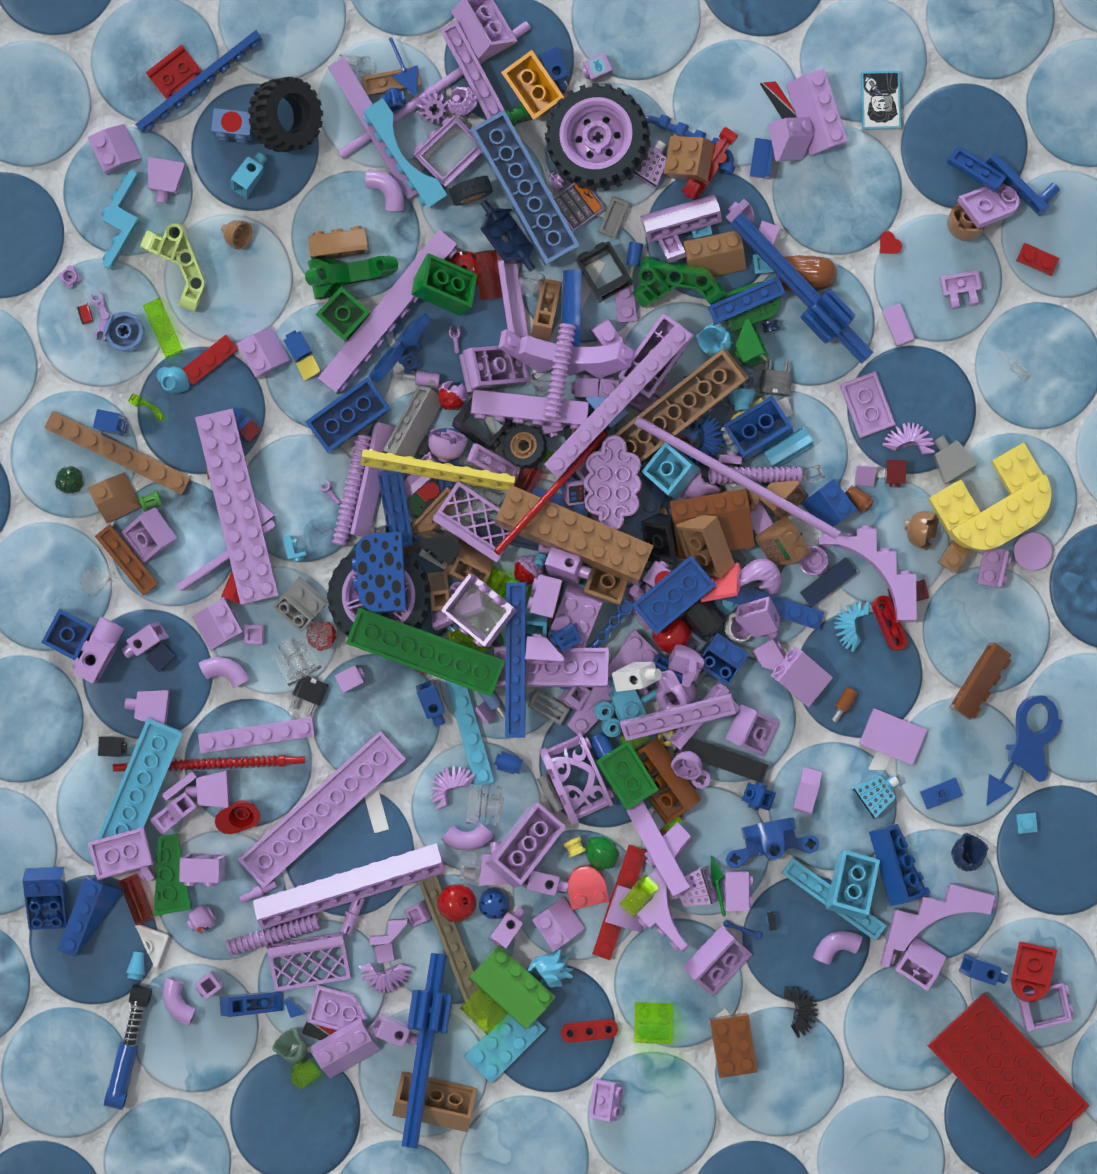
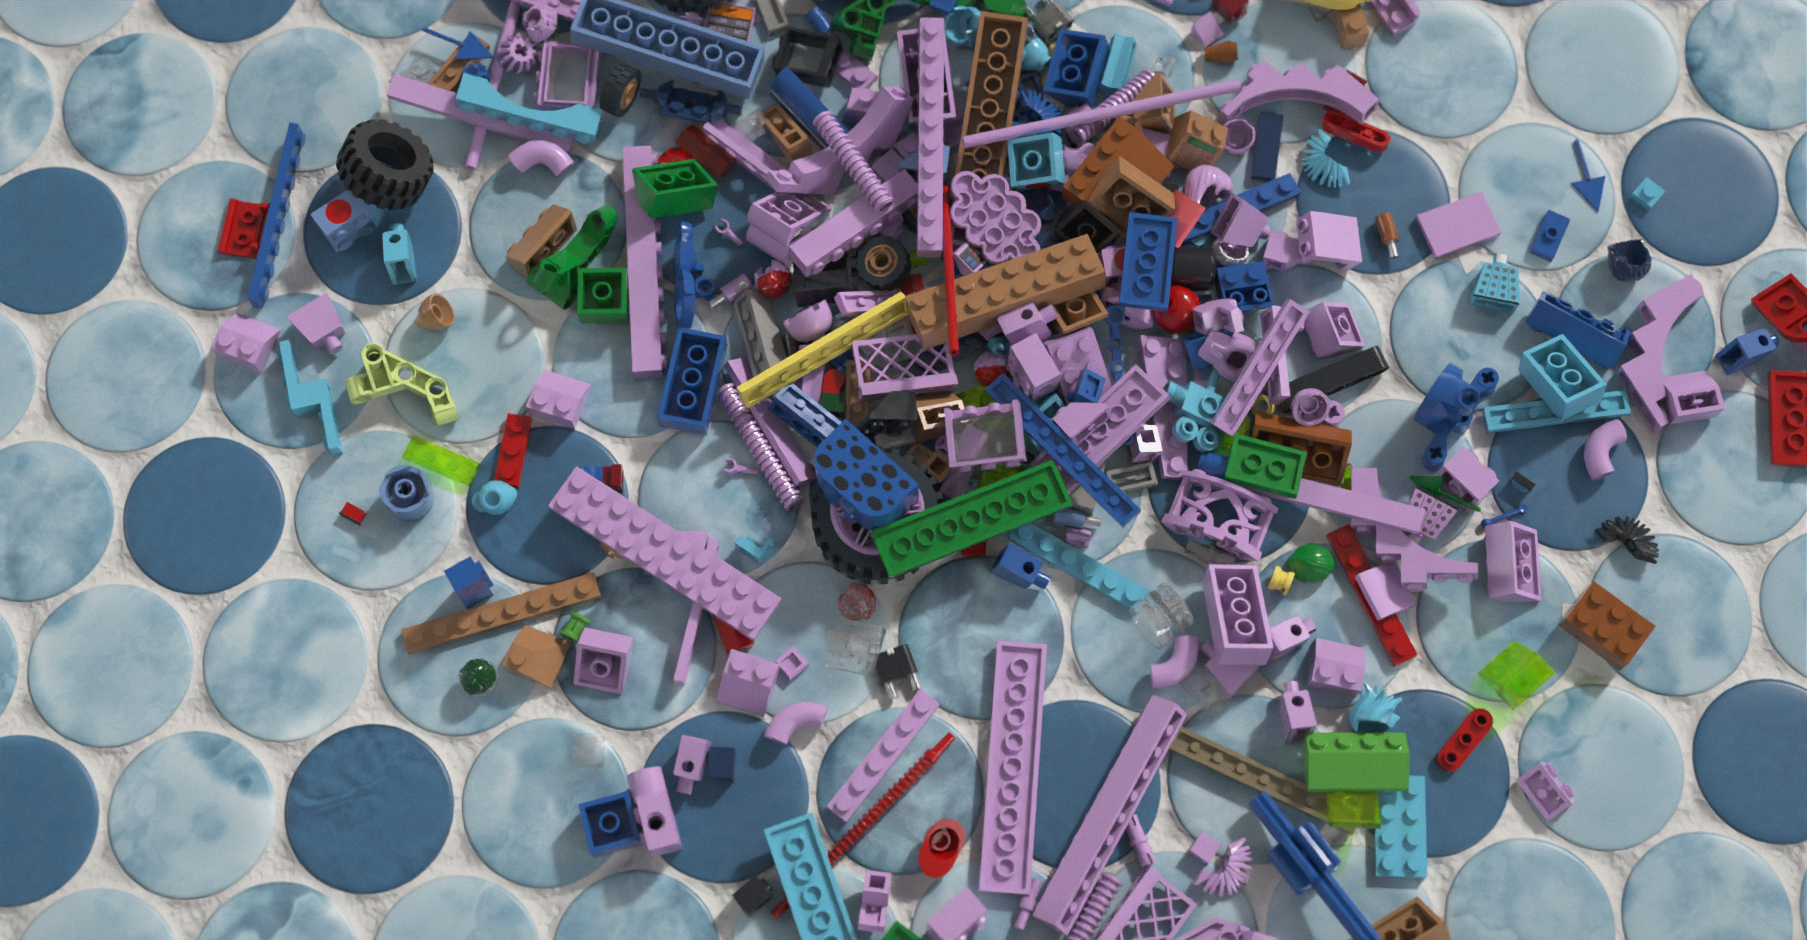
camera: 45 degrees left, 15 degrees down
(69, 271) = (303, 486): lavender plate -> none
(104, 314) = (373, 498): lavender piece -> none
(126, 559) = (602, 703): dark orange plate -> none
(135, 400) = (474, 549): clear neon green piece -> none
(150, 705) = (751, 819): lavender torso -> none
(179, 785) = (855, 870): lavender tile -> none
(211, 790) = (890, 846): lavender torso -> none
(297, 345) = (586, 363): blue brick -> none
(300, 604) = (810, 590): light grey brick -> none
(308, 367) = (615, 374): light yellow slope -> none
(350, 678) = (922, 618): lavender brick -> none
(376, 811) = (1065, 722): white sticker -> none
(386, 1027) = (1287, 913): lavender torso -> none
(394, 928) = (1191, 815): lavender slope -> none
(418, 913) = (1199, 781): lavender slope -> none
(449, 782) = (1108, 630): lavender hair -> none
(456, 903) = (1226, 732): red cylinder -> none
(493, 905) = (1261, 704): blue helmet -> none
(508, 763) = (1145, 560): blue brick -> none
(586, 887) = (1329, 608): coral slope -> none
(639, 895) = (1386, 563): clear neon green slope -> none
(644, 673) = (1186, 364): white torso -> none
(758, 796) = (1398, 380): blue brick -> none
(807, 791) = (1436, 337): lavender slope -> none
(829, 504) = (1202, 70): blue slope -> none
(921, 529) = (1301, 28): medium nougat cylinder -> none
(980, 681) = (1483, 107): dark orange slope -> none
(1028, 749) = (1584, 127): blue animal -> none

